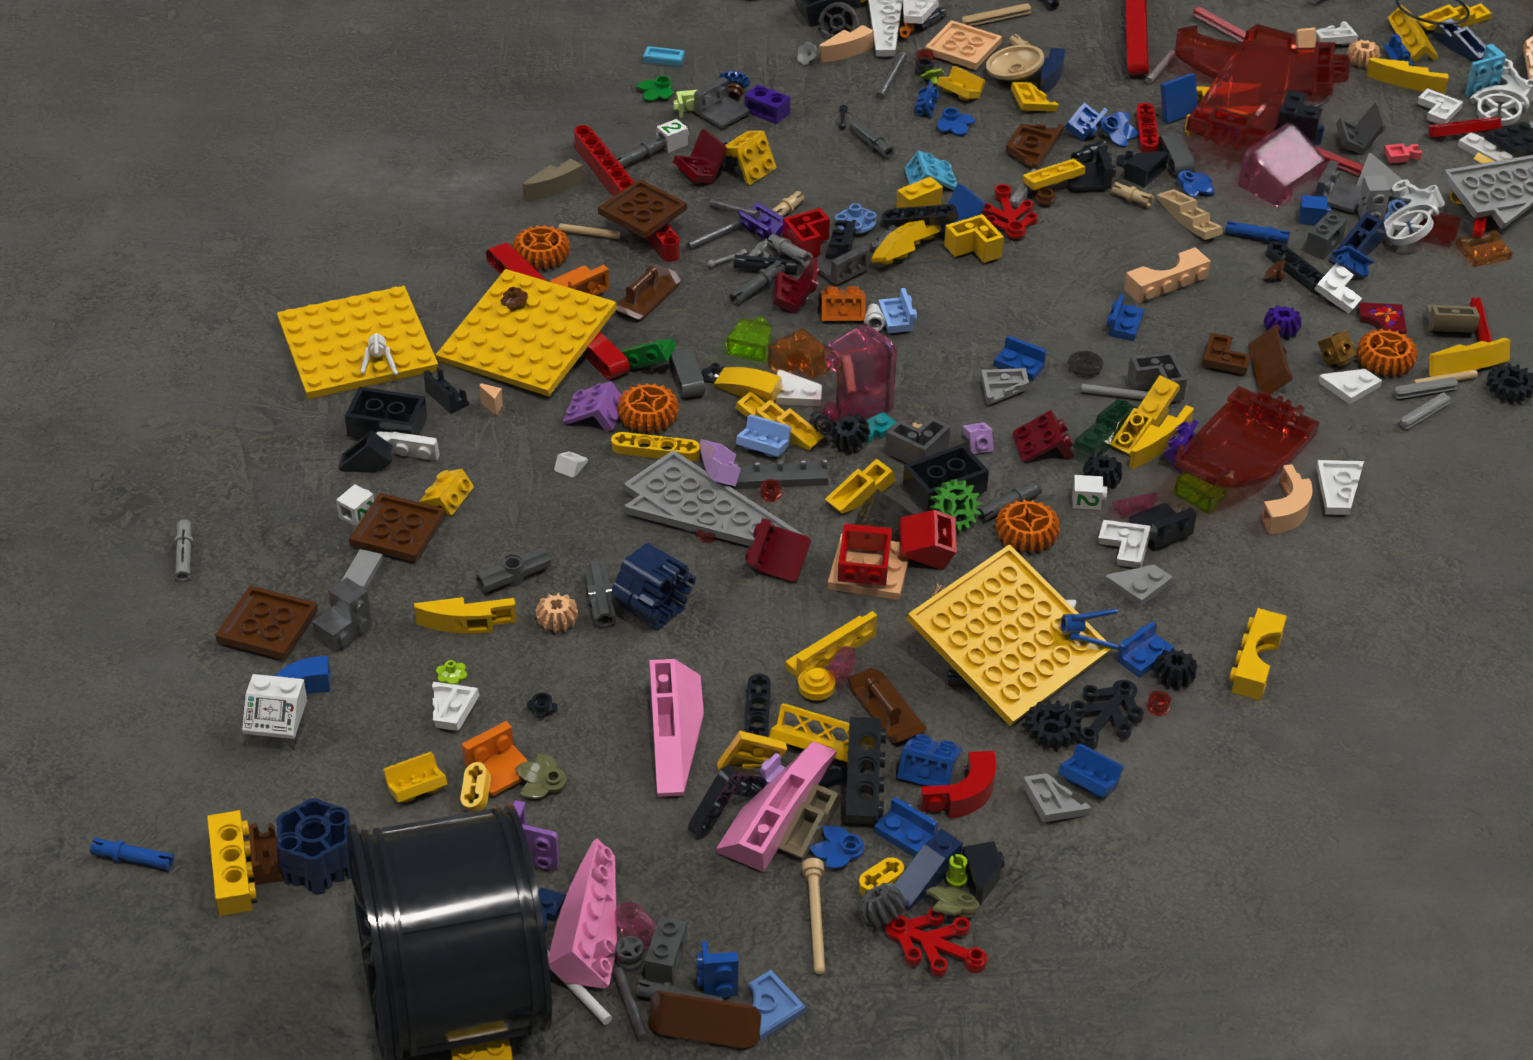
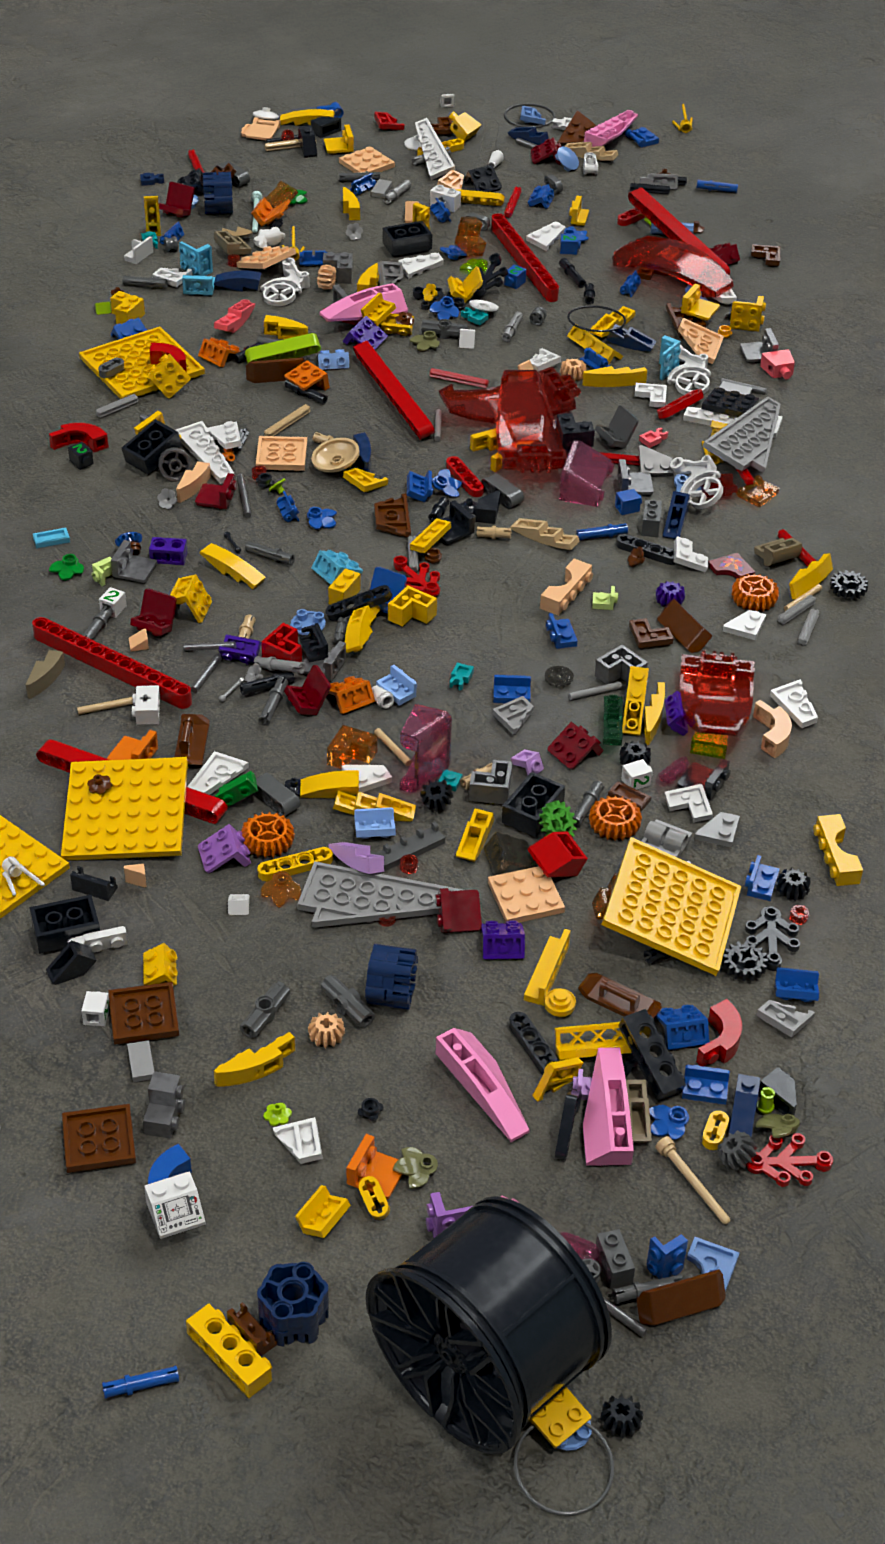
camera: 30 degrees left, 0 degrees up
(542, 246) = (80, 731): orange gear -> none
(618, 465) = (280, 890): none -> clear orange plate
(626, 247) = (146, 705): none -> white brick
(642, 208) = (144, 671): reddish brown plate -> none
(644, 331) = (217, 772): none -> white wing
(671, 182) = (139, 641): none -> light nougat slope
(750, 339) = (305, 748): clear neon green torso -> none
(805, 599) = (503, 940): none -> dark purple bracket
(821, 138) = (233, 565): none -> yellow slope
(821, 423) = (410, 795): black pin -> none
(843, 663) = (569, 977): clear pink plate -> none
(854, 538) = (527, 870): red window -> none
(862, 65) = (217, 495): none -> dark red bracket
(962, 83) = (306, 484): yellow bracket -> none
(976, 324) = (461, 674): none -> teal plate
(1066, 568) = (666, 837): none -> light grey plate
(1067, 512) = (638, 797): none -> reddish brown tile
(1075, 623) = (712, 878): blue plant -> none
(1178, 97) = (475, 445): blue tile -> none
(1195, 183) = (530, 508): blue plate -> none
(1203, 304) = (605, 600): none -> yellowish green bracket
(1337, 349) = (723, 601): pearl gold brick -> none
(1353, 261) = (686, 530): blue hinge -> none
(1373, 196) = (666, 479): light grey brick -> none

